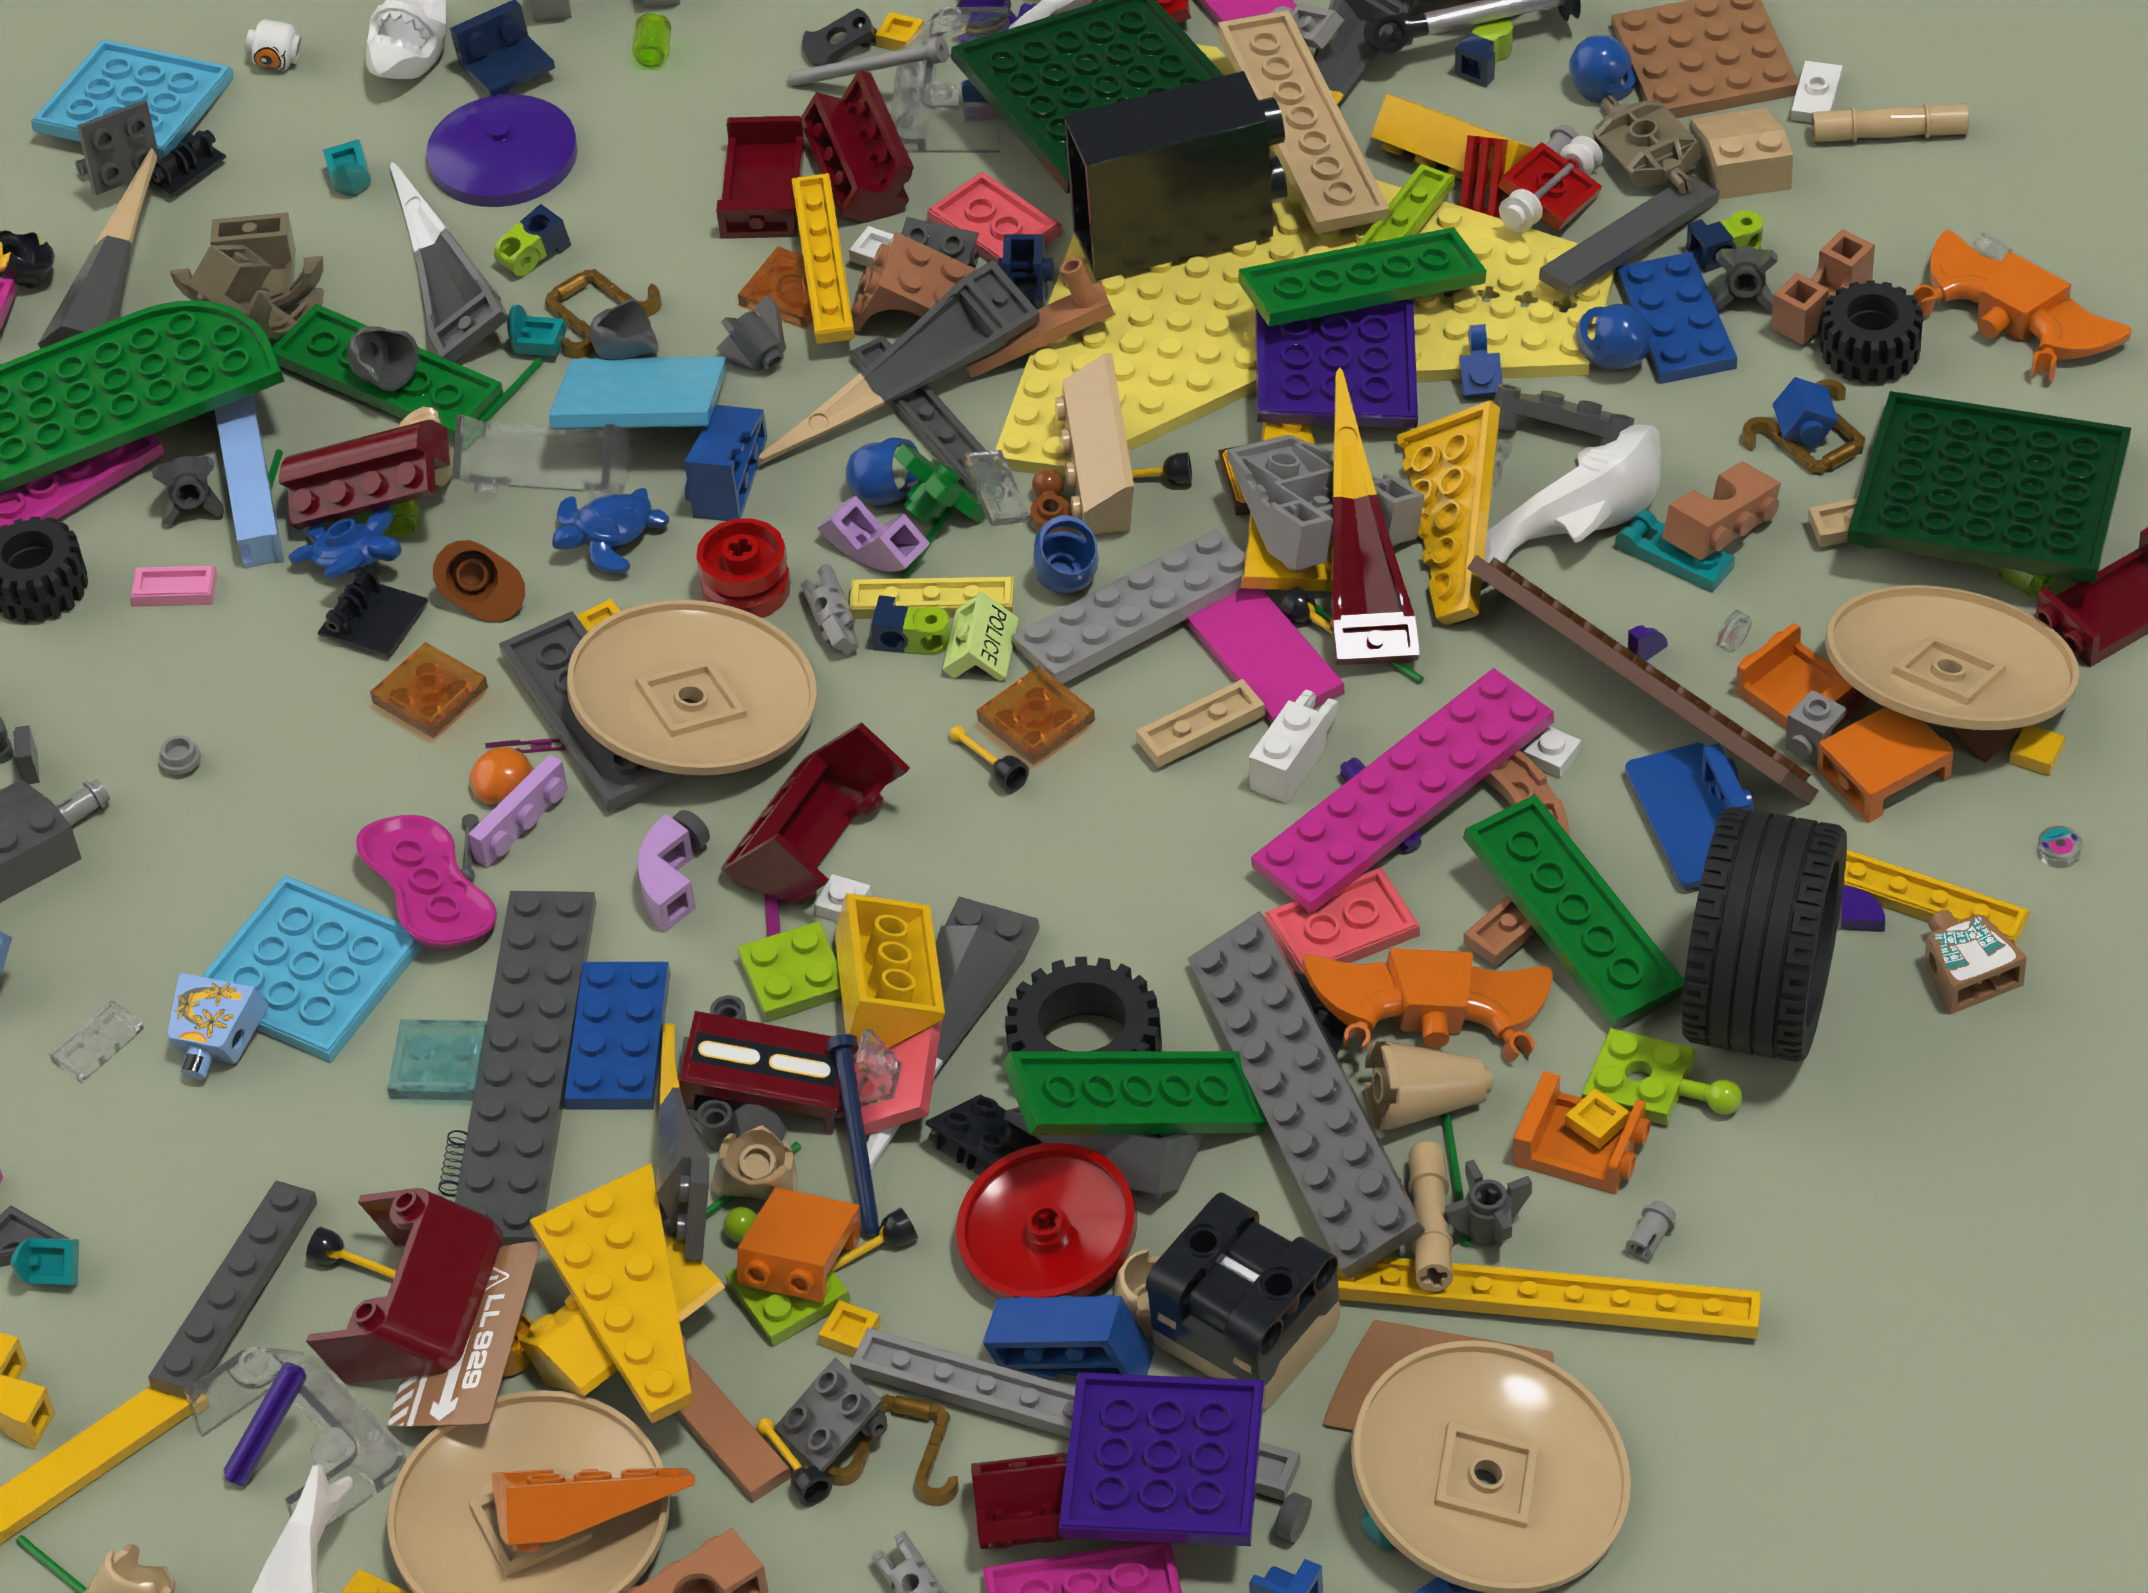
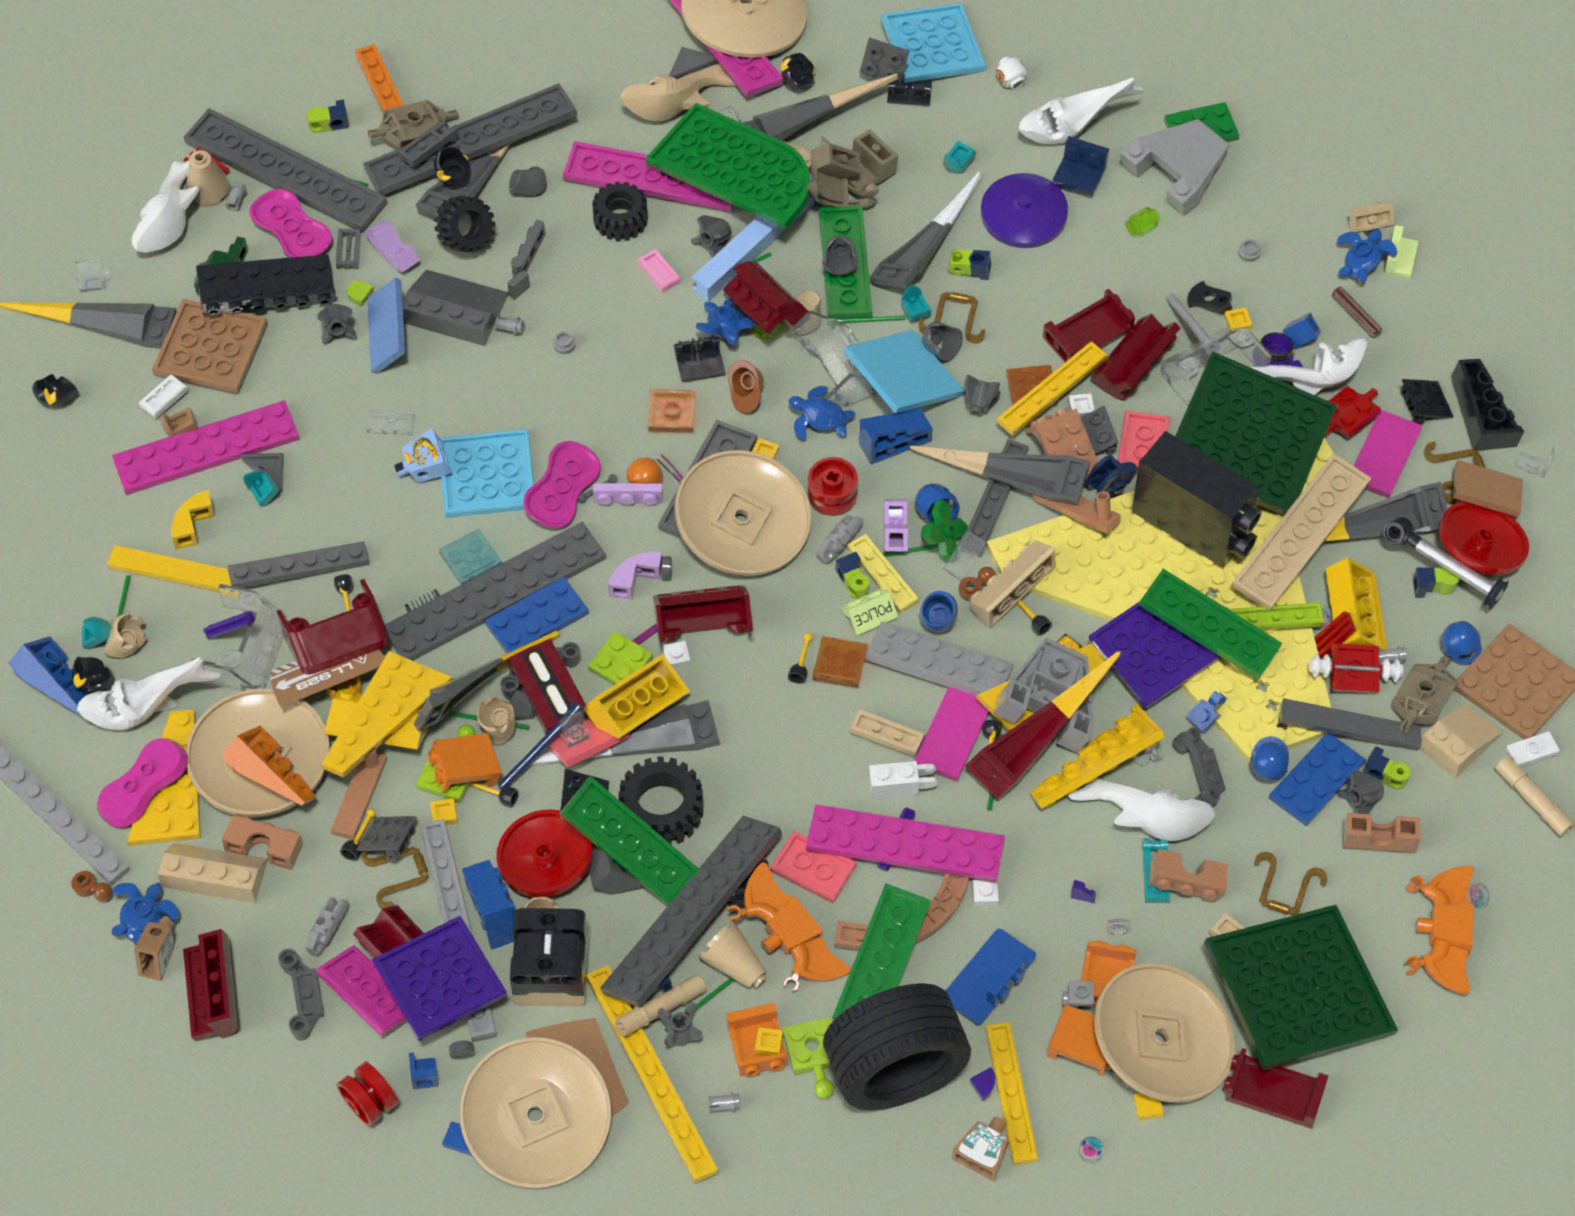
camera: 50 degrees right, 10 degrees up
(1315, 24) = (1374, 493): light grey plate -> none
(1646, 677) = (1048, 905): reddish brown plate -> none
(1805, 412) = (1287, 874): blue brick -> none
(1871, 332) = (1374, 856): black tyre -> none

